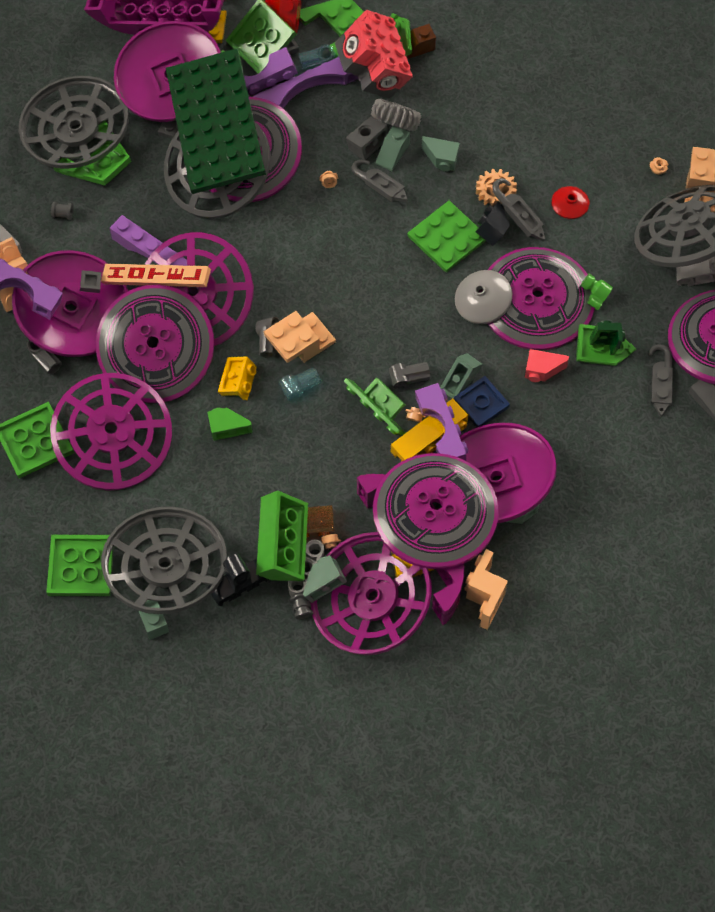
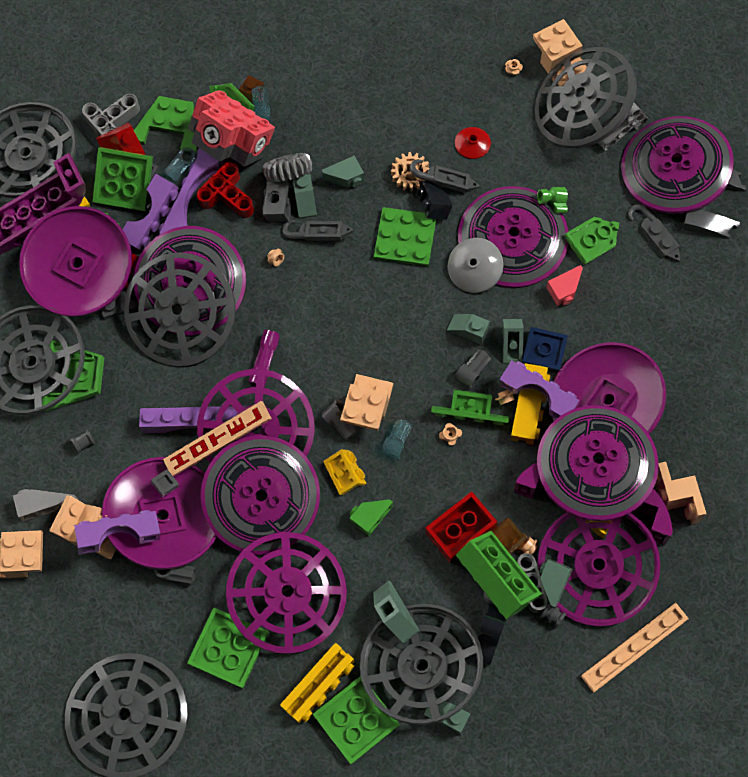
camera: 35 degrees left, 5 degrees up
(75, 516) = (317, 683): none -> yellow brick
(176, 505) = (394, 612): none -> sand green slope
(215, 121) = (155, 276): dark green plate -> none
(262, 241) = (267, 347): none -> magenta axle
(293, 478) = (460, 525): none -> red brick
(334, 96) = (227, 189): none -> red beam
(345, 682) = (634, 647): none -> light nougat tile
(349, 406) = (449, 428): none -> light nougat plate
(420, 51) = (261, 102): none -> clear light blue piece
(435, 342) = (469, 327): none -> sand green slope
(608, 334) = (603, 226): dark green bracket -> none

